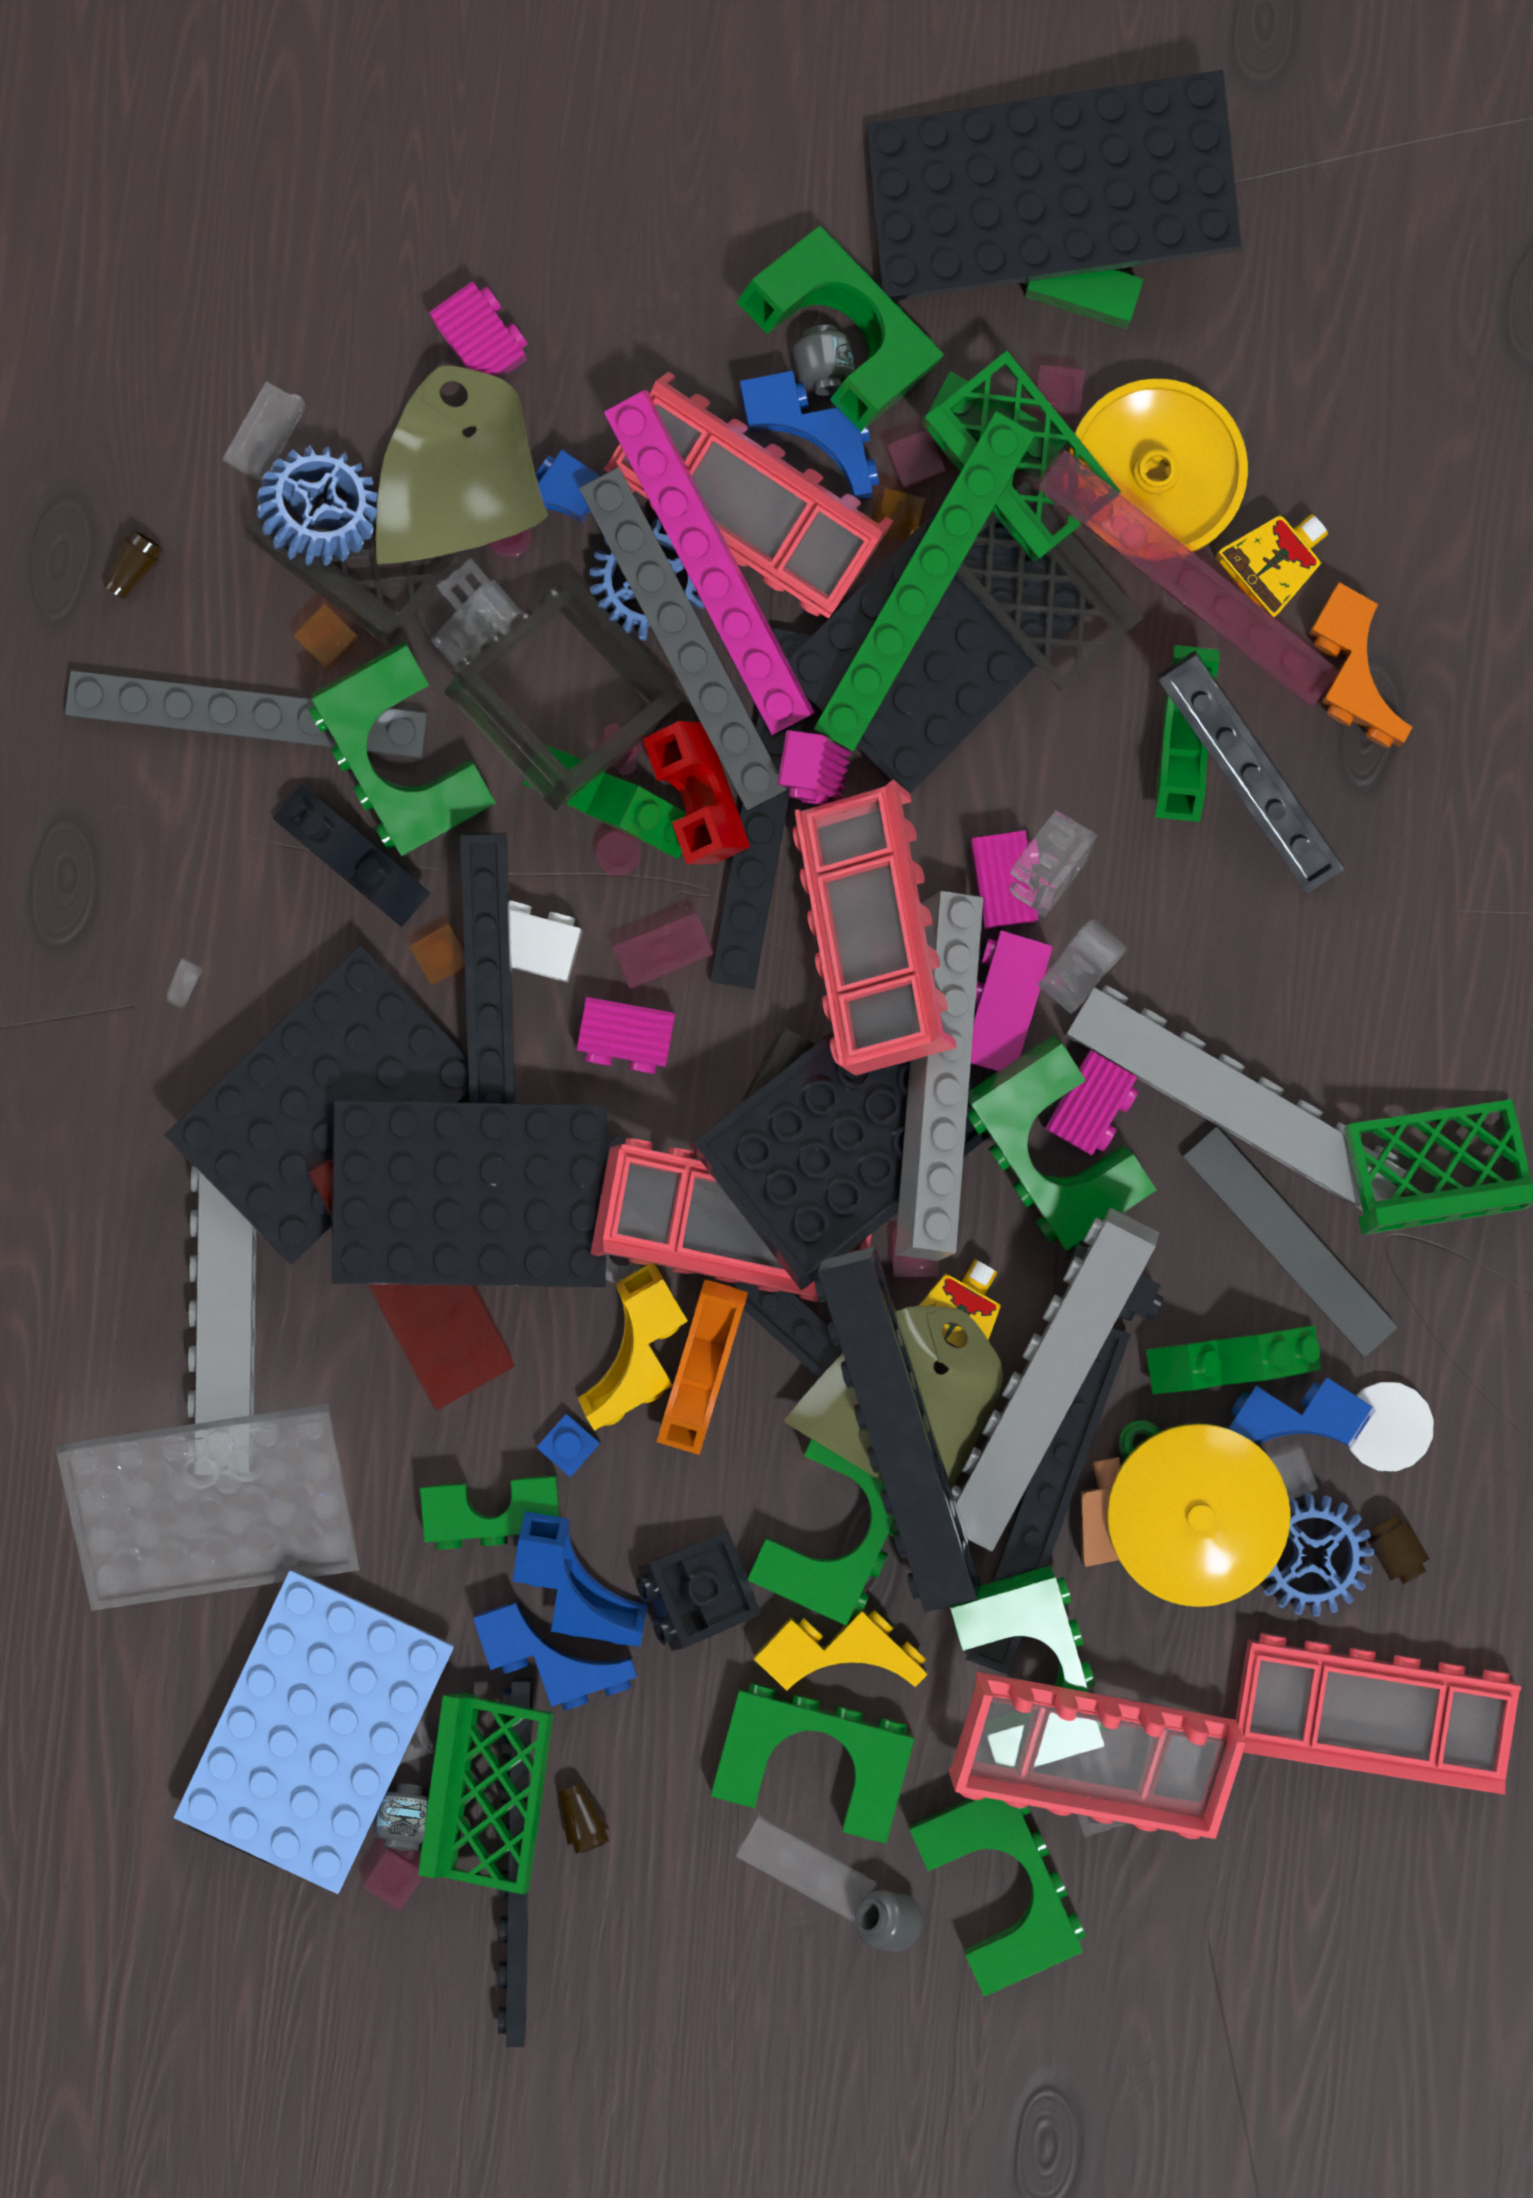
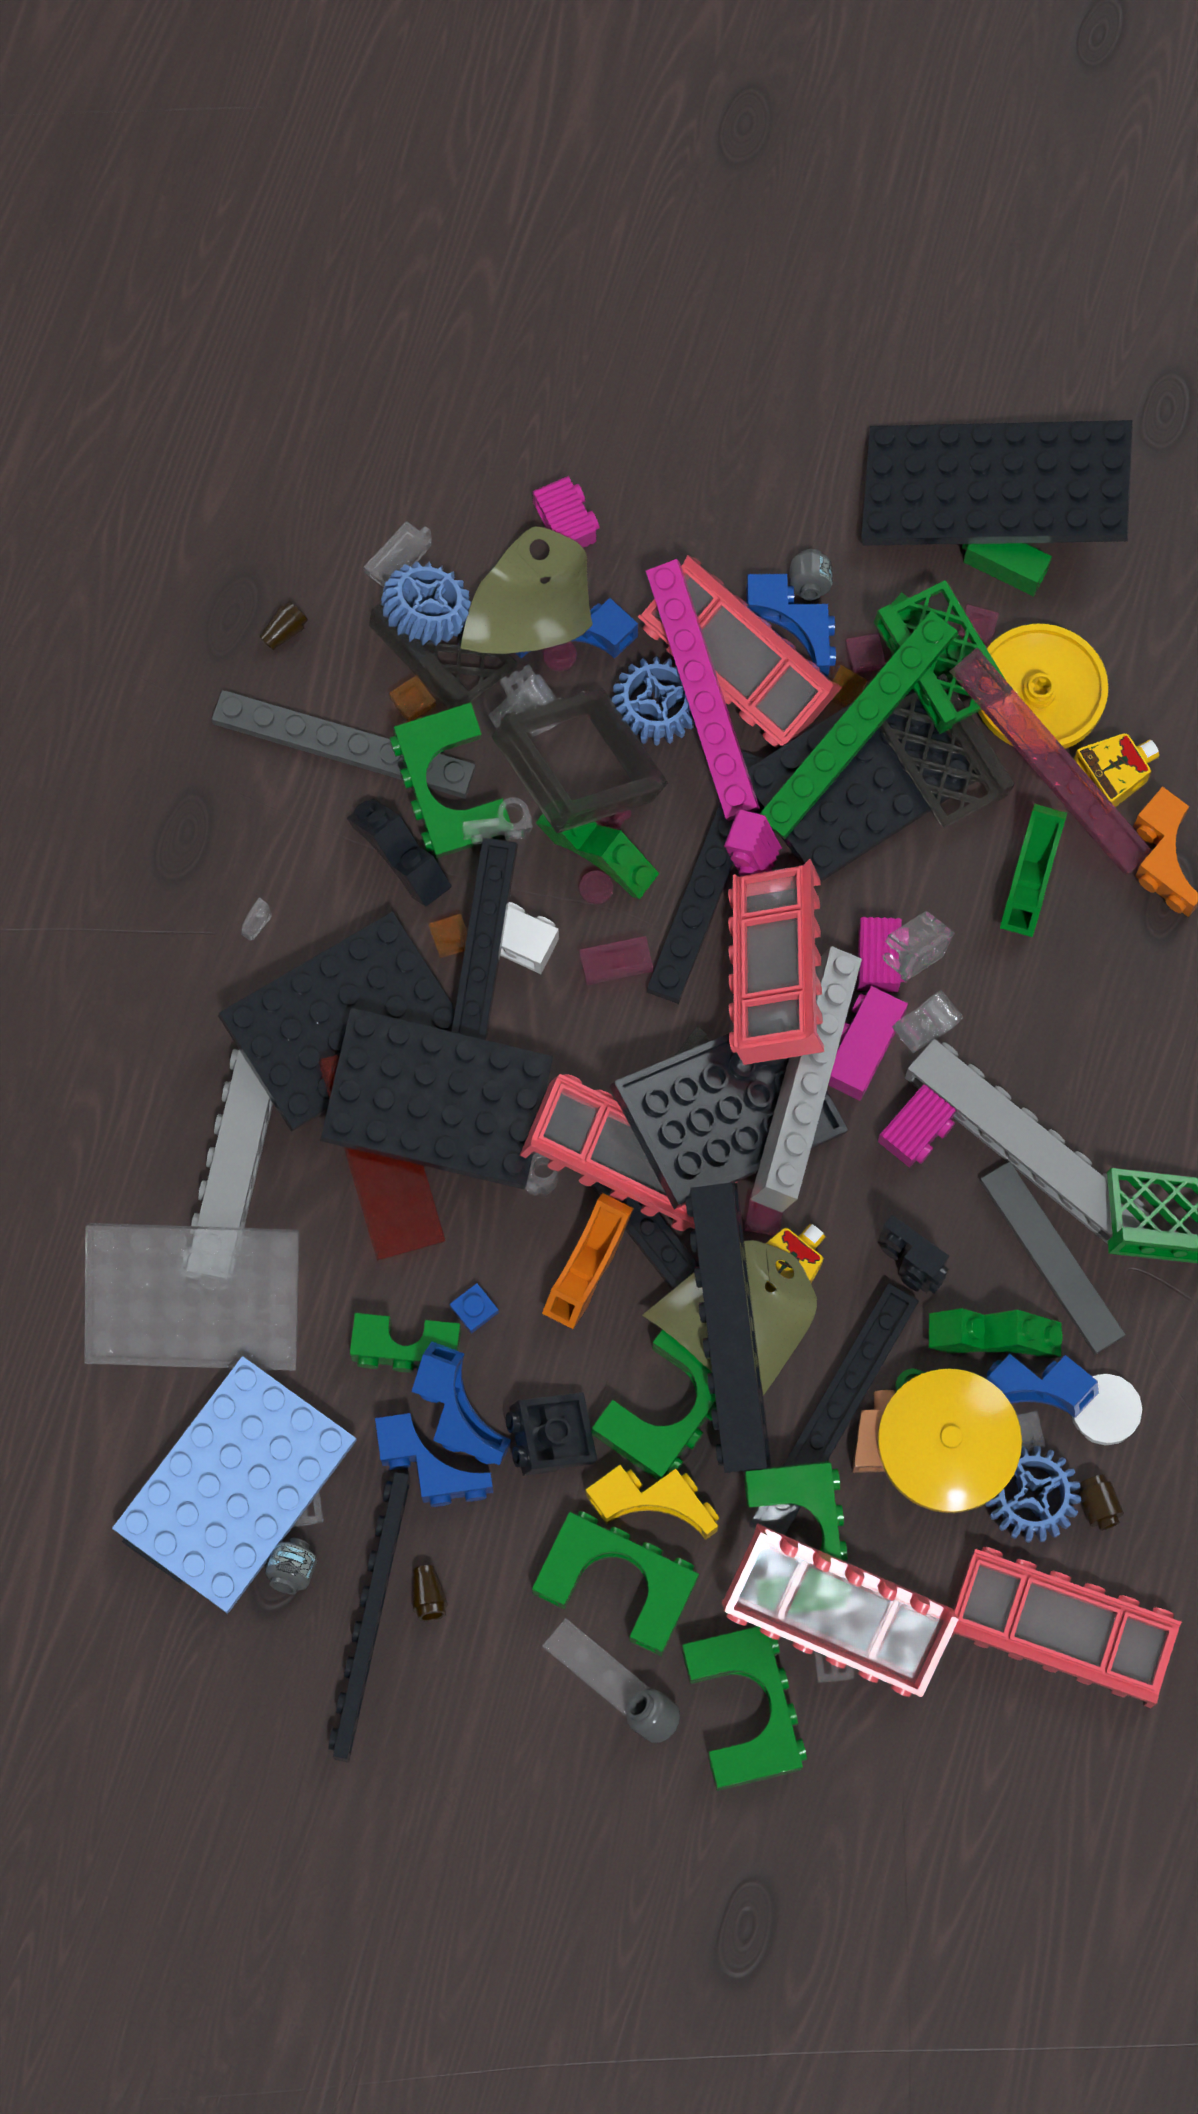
camera: 10 degrees right, 15 degrees down
(393, 1879) = (272, 1613): clear pink plate -> none
(449, 1792) = (330, 1547): green fence -> none
(456, 817) = (498, 826): none -> clear plate
(625, 1034) = (576, 1014): dark pink brick -> none
(636, 1372) = (538, 1260): yellow arch -> none
(682, 638) = (673, 740): dark grey plate -> none
(691, 764) = (660, 825): red arch -> none
(825, 275) = (820, 516): green arch -> none
(1006, 1110) = (851, 1114): green arch -> none
(1053, 1374) = (854, 1310): light grey brick -> none
(1250, 771) = (1077, 905): black plate -> none

